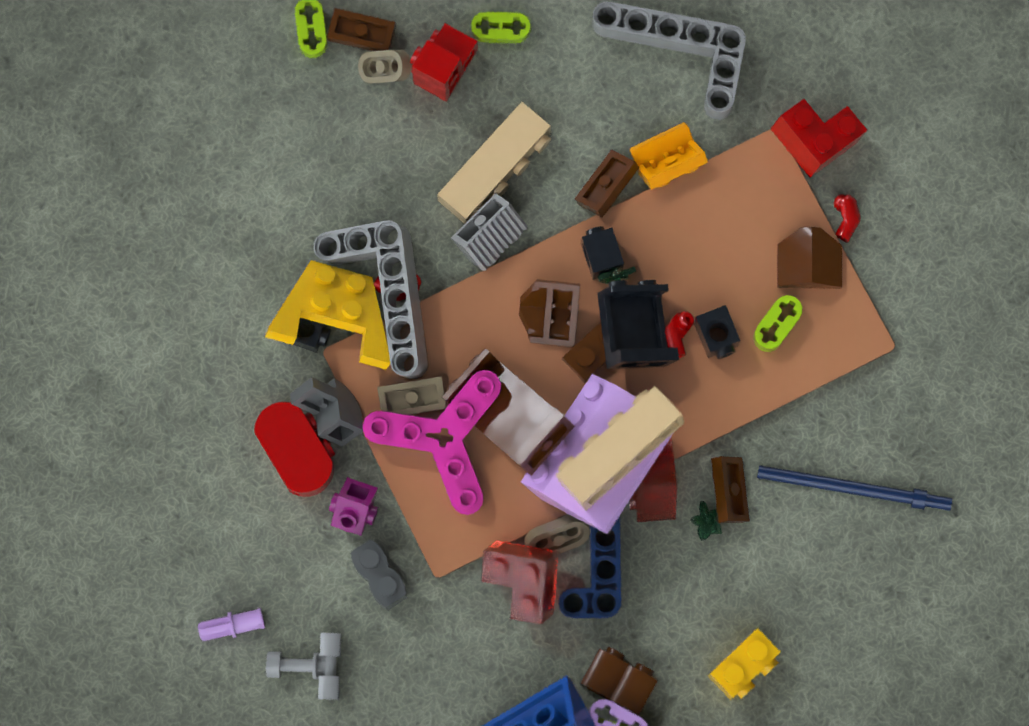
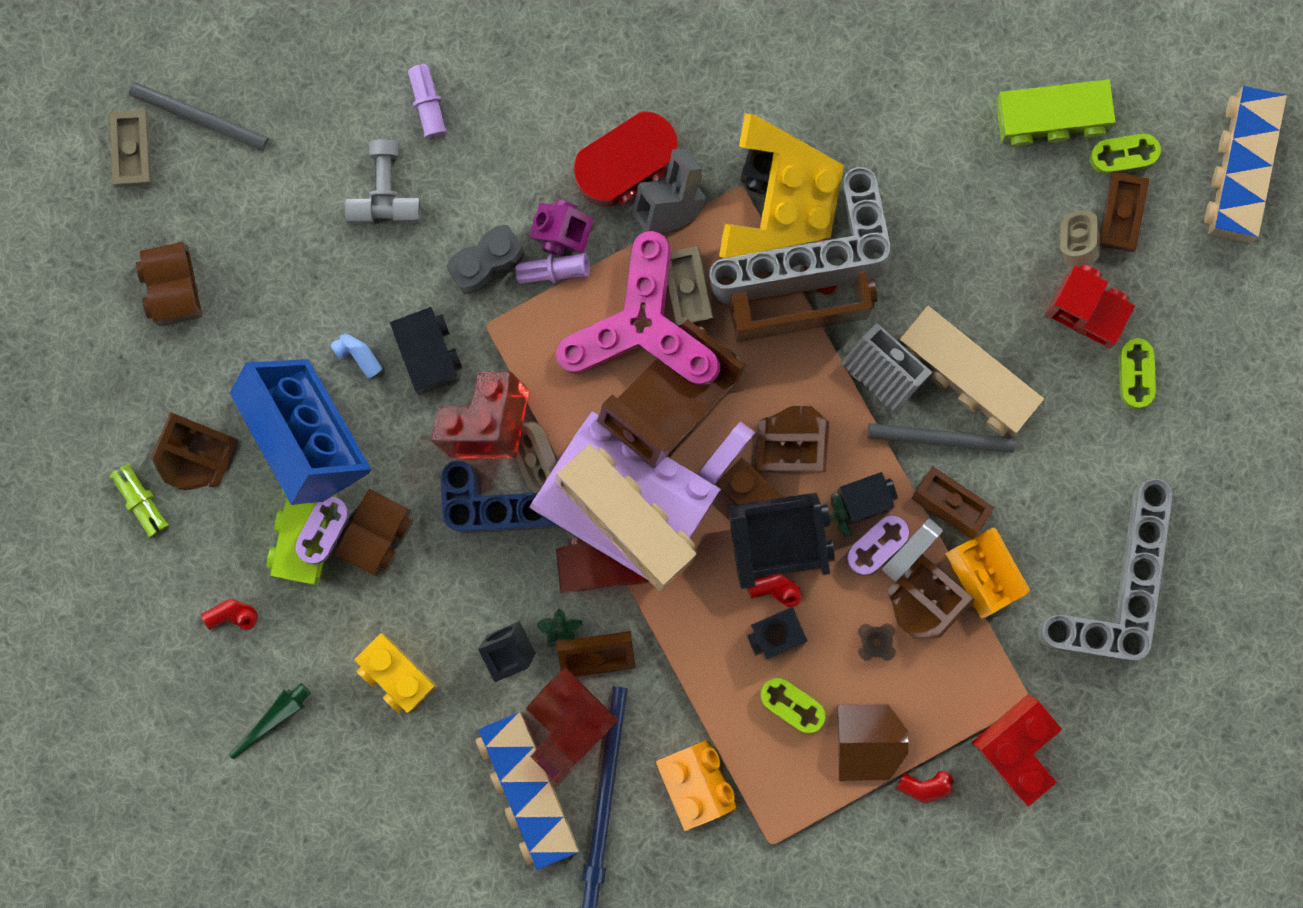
camera: 90 degrees right, 5 degrees up
(272, 82) = (1055, 112): none -> lime brick
(389, 516) = (553, 268): none -> lavender axle
(446, 348) = (747, 329): none -> reddish brown panel
(455, 691) = (360, 351): none -> light blue arm
(458, 630) = (425, 350): none -> black brick
(550, 191) = (939, 437): none -> dark grey bar
(559, 369) = (726, 453): none -> lavender beam
(636, 251) = (871, 538): none -> lavender beam
(647, 217) = (912, 549): none -> light grey beam
(691, 206) = (927, 600): none -> reddish brown slope
(727, 565) = (507, 651): none -> black brick
(731, 244) = (884, 649): none -> clear smoke plate
(792, 507) = (572, 718): none -> clear red brick
(843, 408) = (696, 785): none -> light orange bracket
(847, 551) = (528, 790): none -> brick

